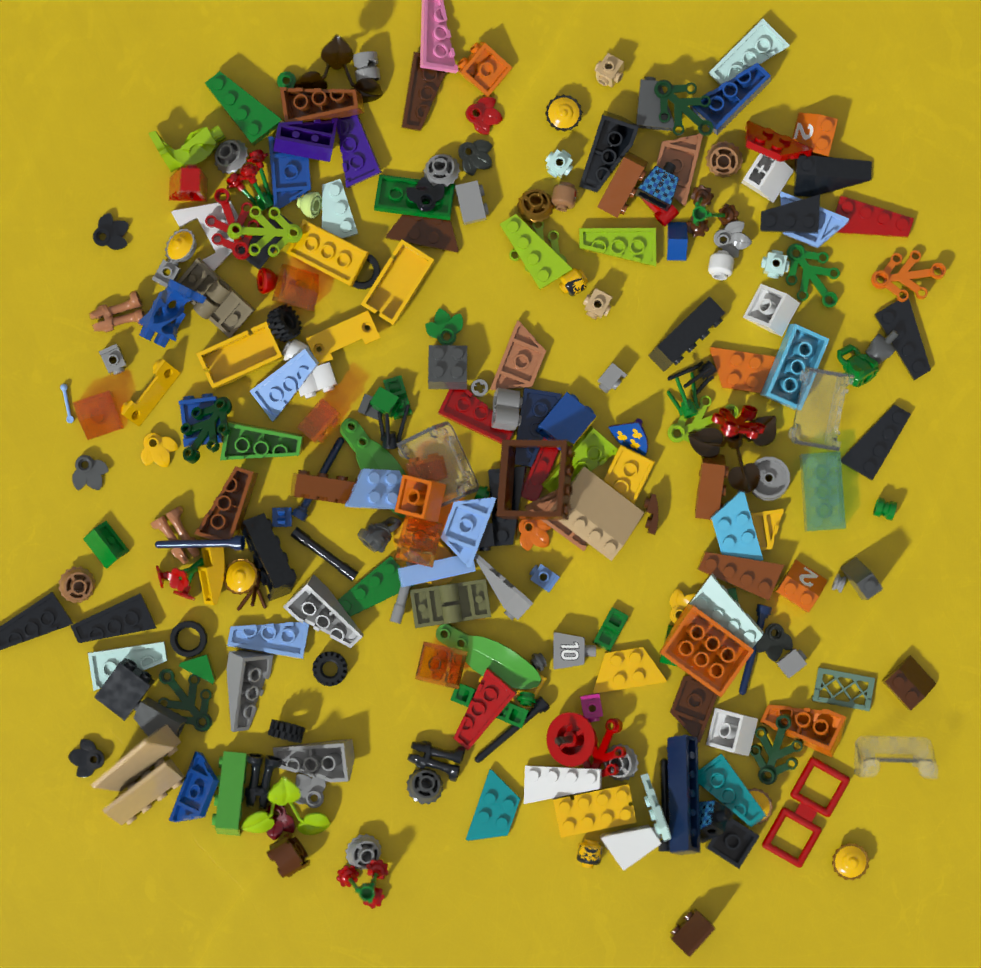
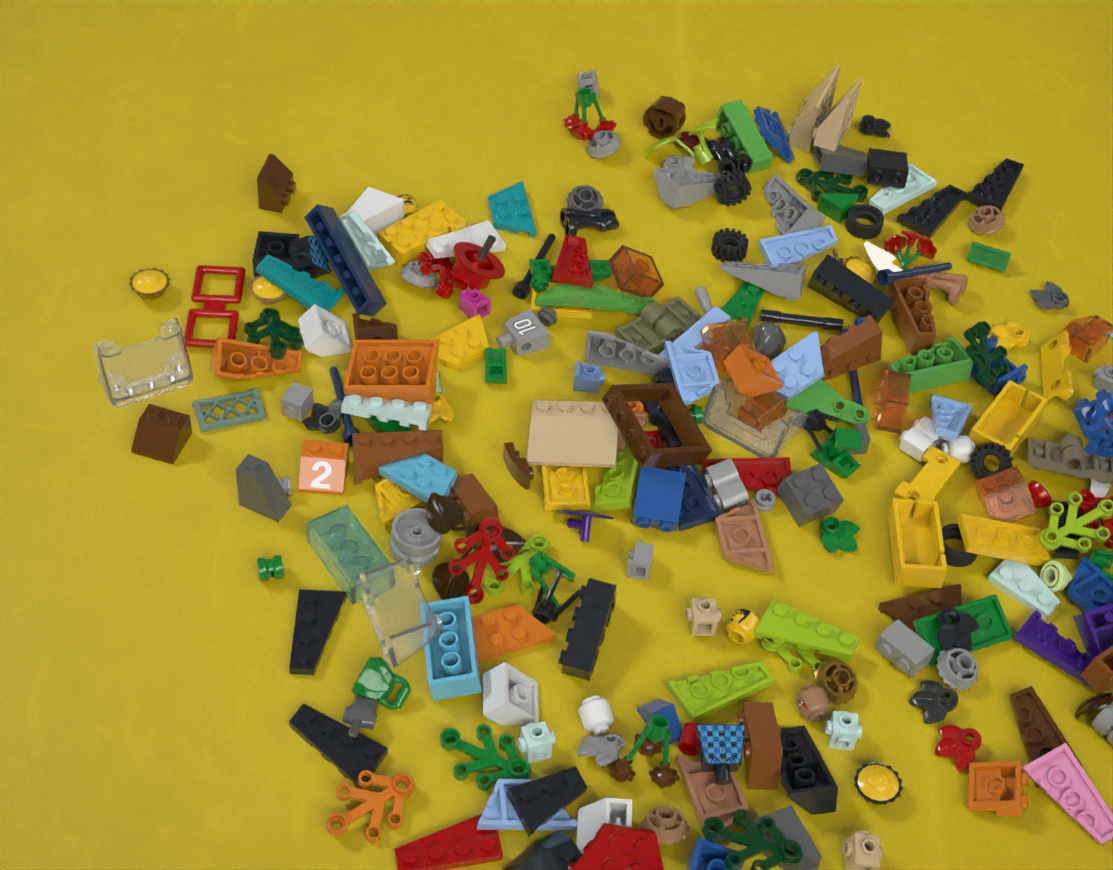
camera: 145 degrees right, 40 degrees down
(328, 950) = (589, 80): none -> light grey brick

